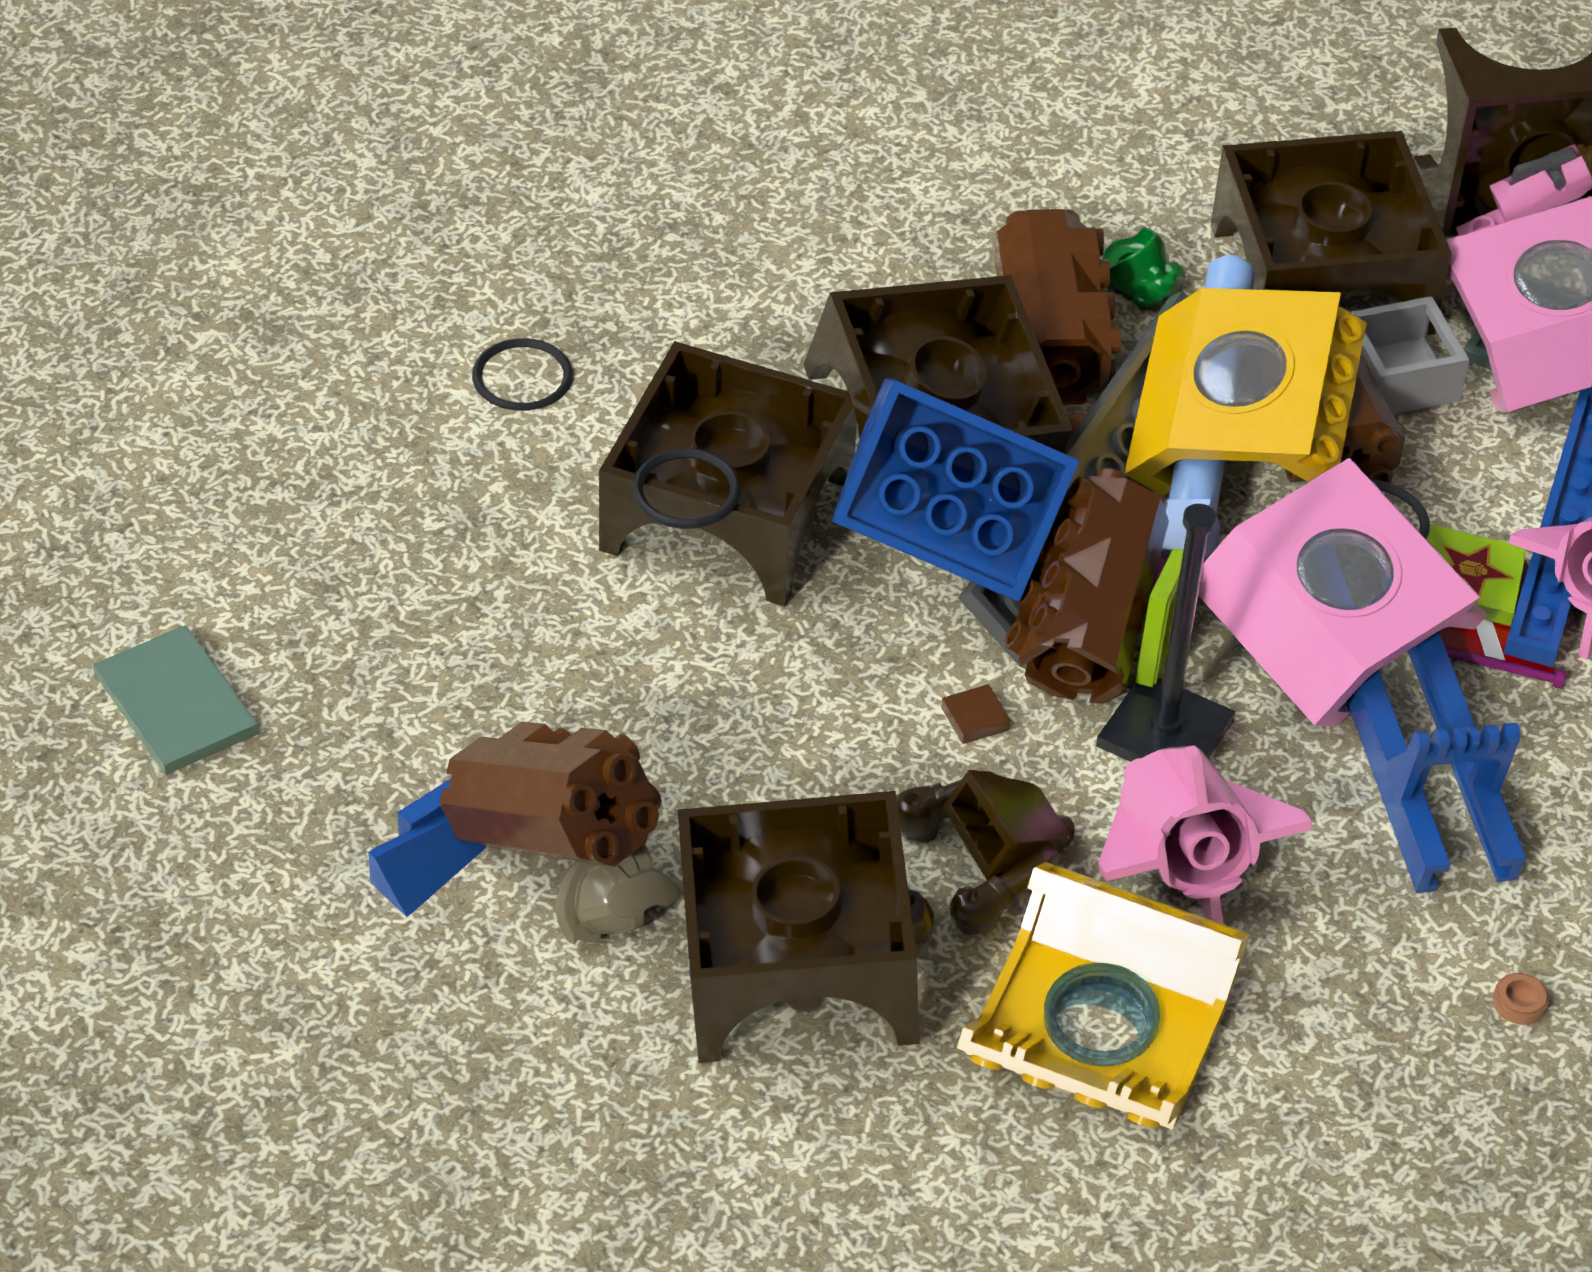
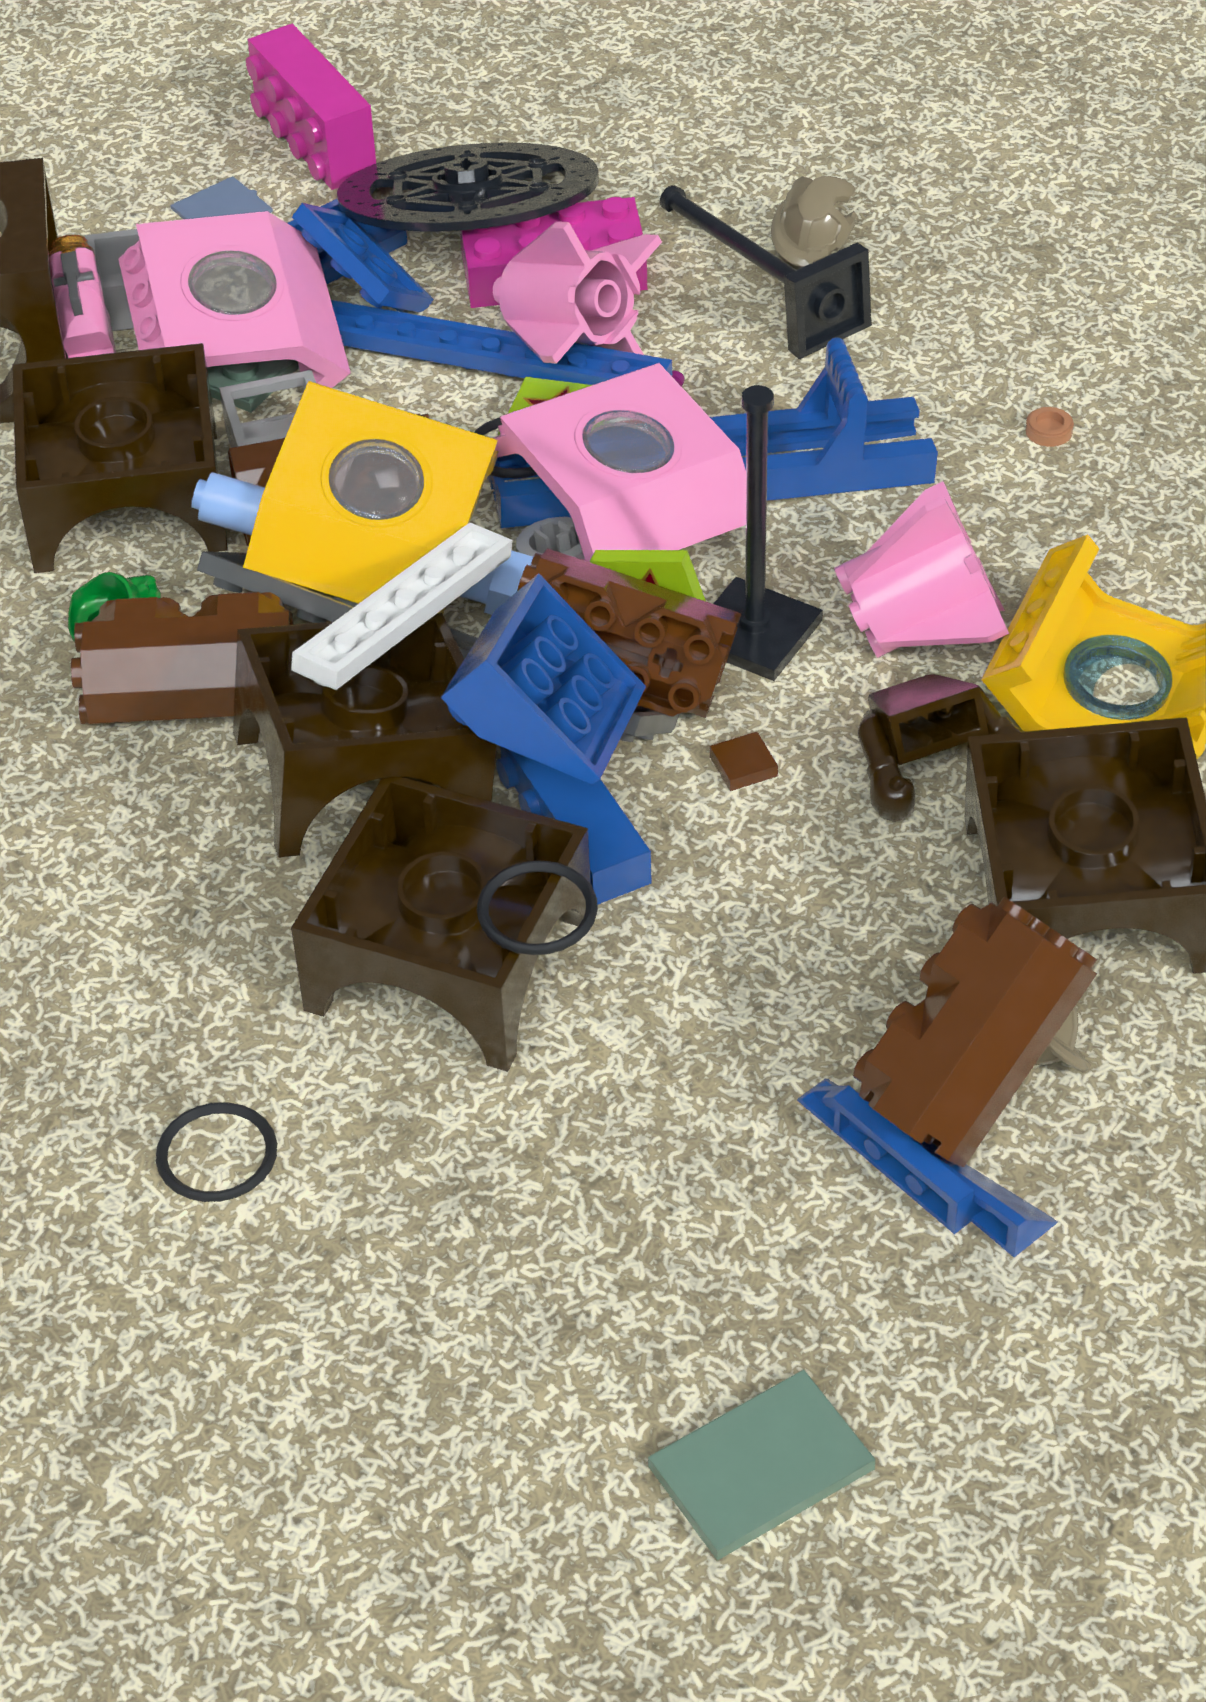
camera: 85 degrees left, 0 degrees up
(869, 593) = (616, 850): none -> blue brick
(1058, 387) = (400, 606): none -> white plate

